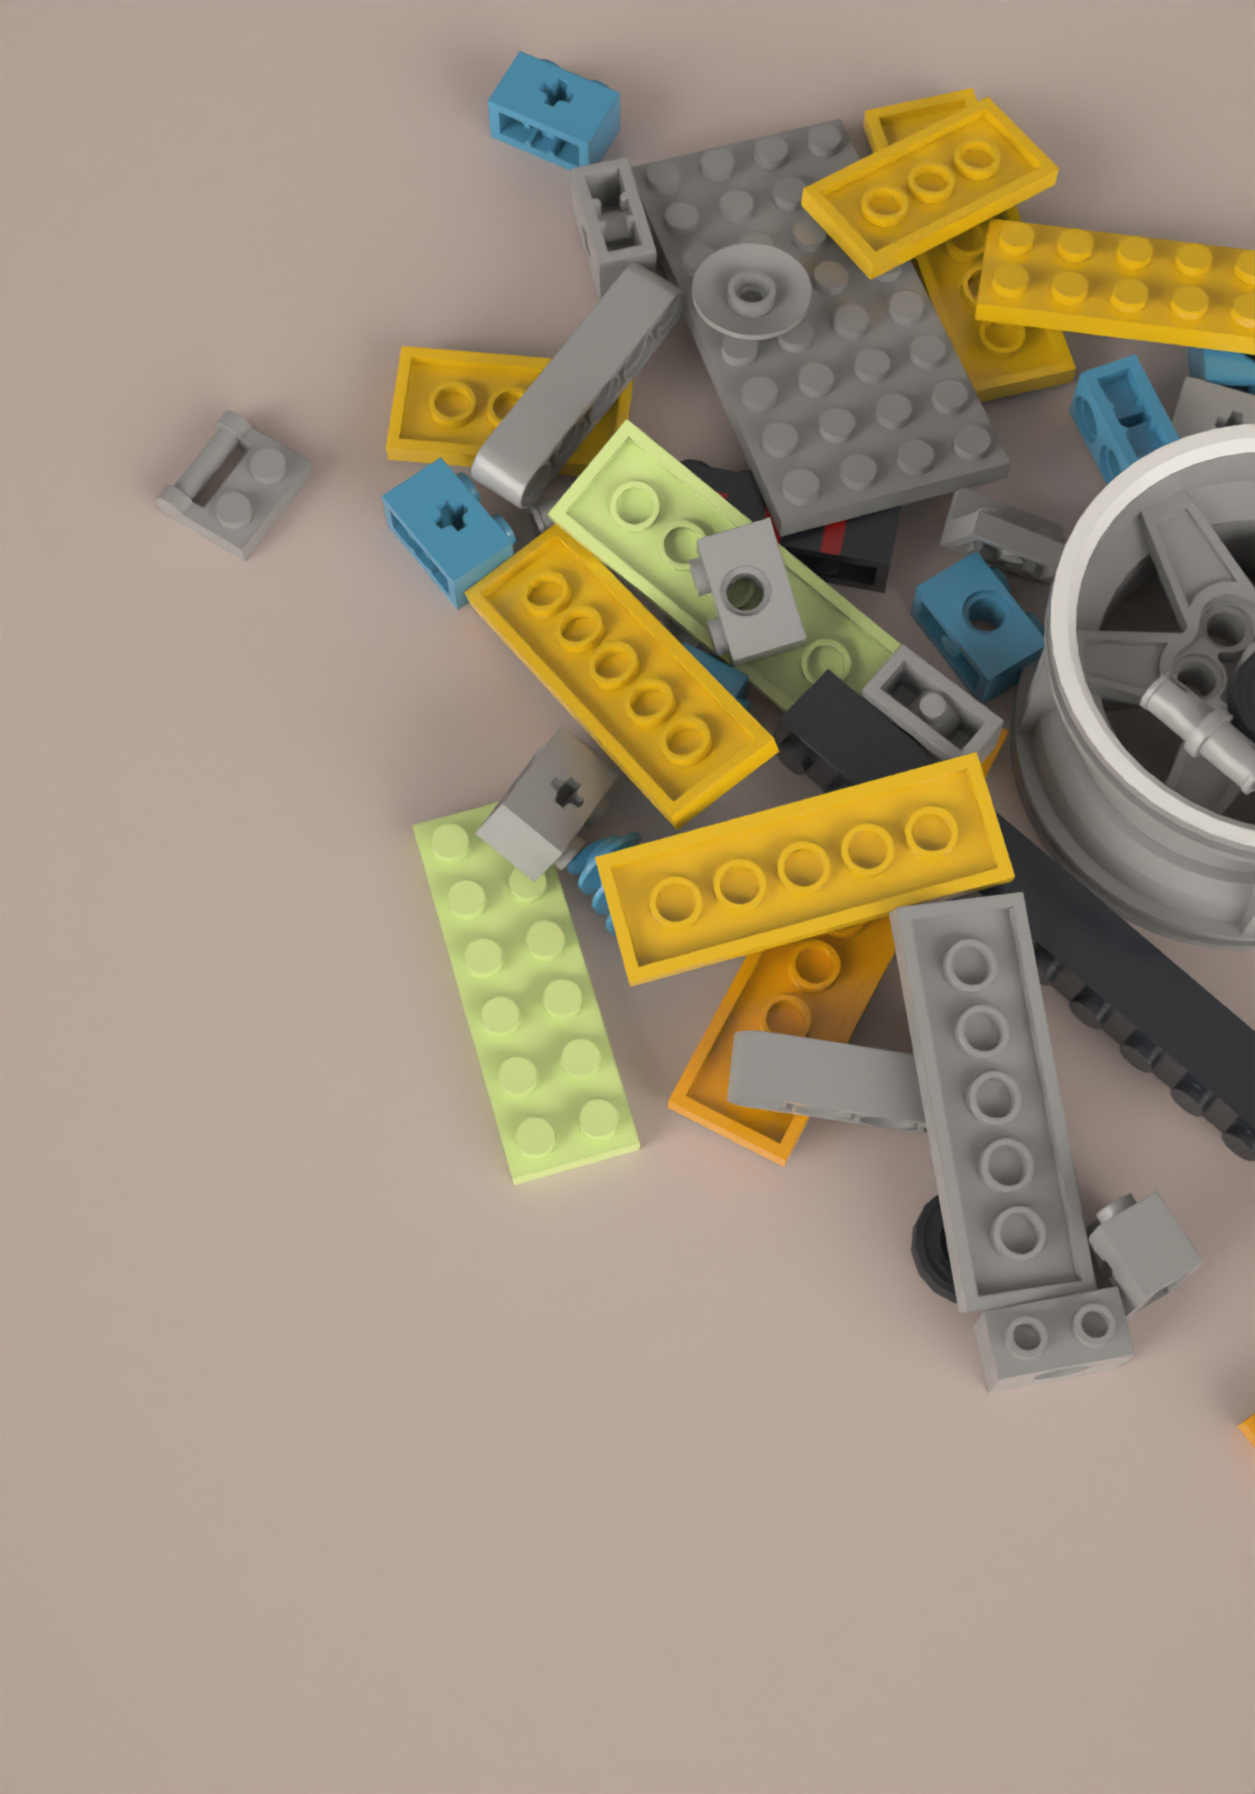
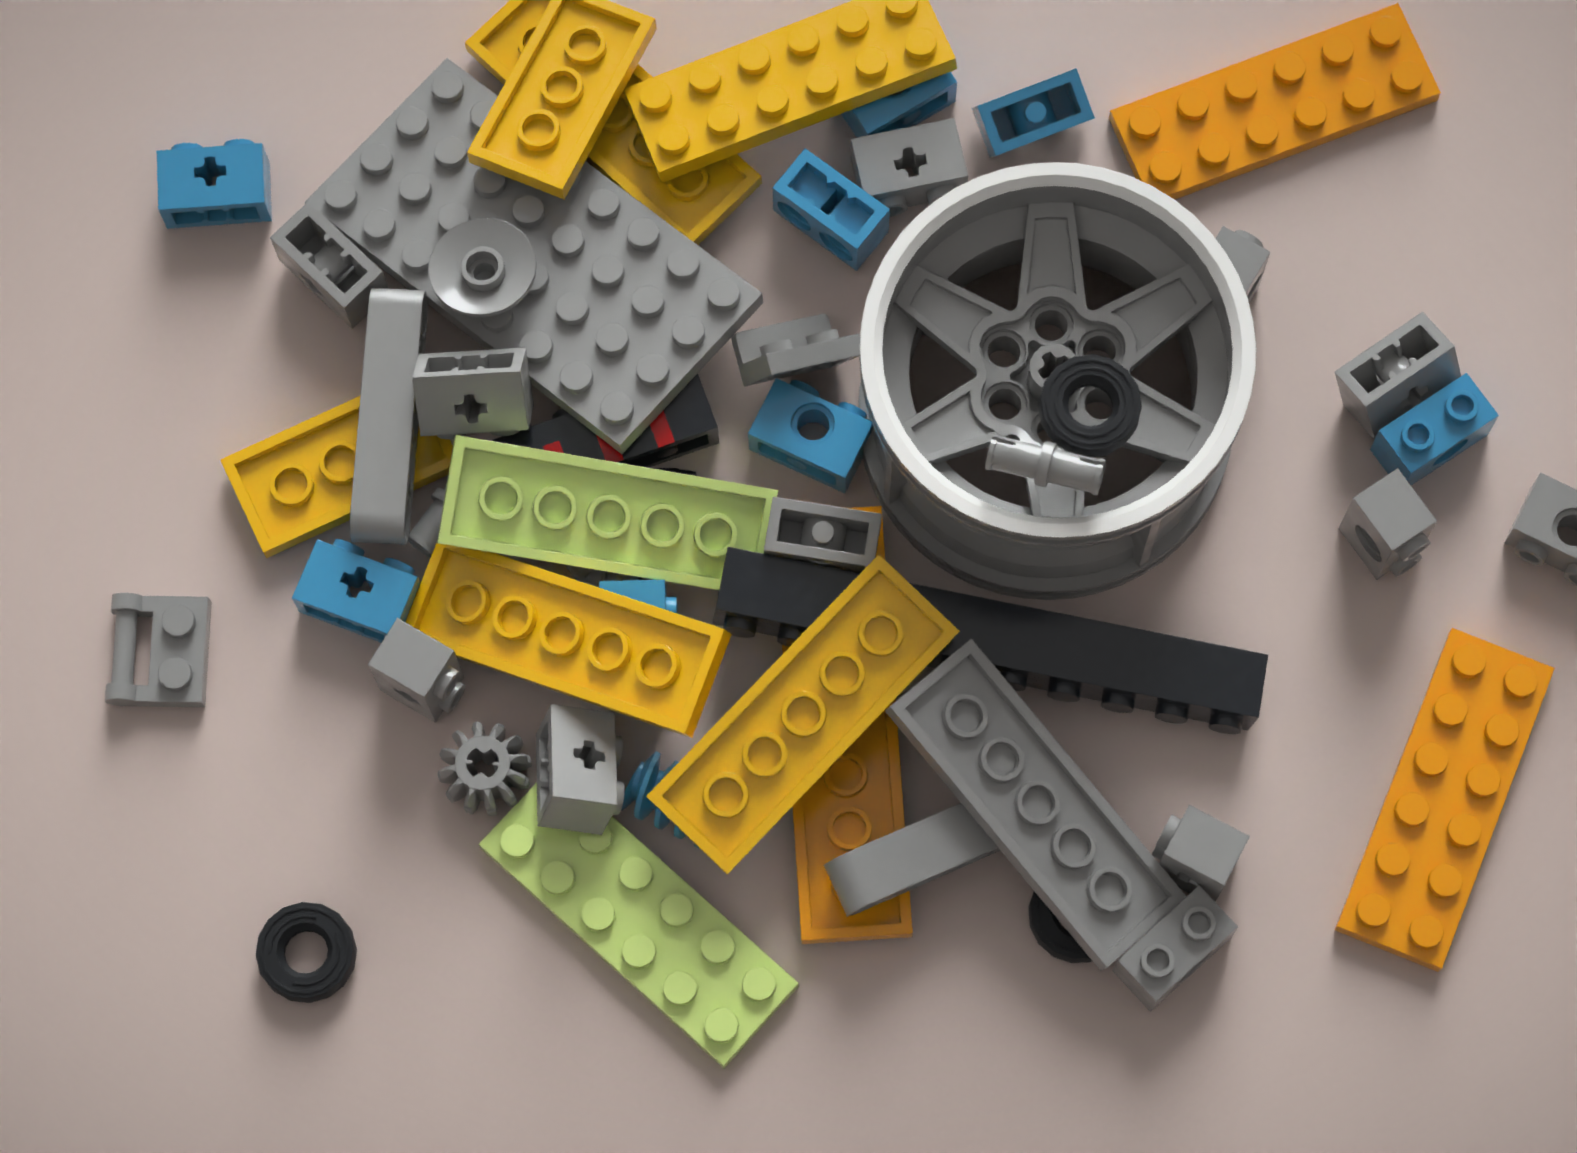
camera: 30 degrees left, 5 degrees up
(192, 867) = (295, 920): none -> black tyre
(455, 625) = (418, 671): none -> light grey brick
(460, 735) = (489, 750): none -> light grey gear
(702, 400) = (446, 388): none -> light grey brick
(751, 556) = (662, 528): light grey brick -> none

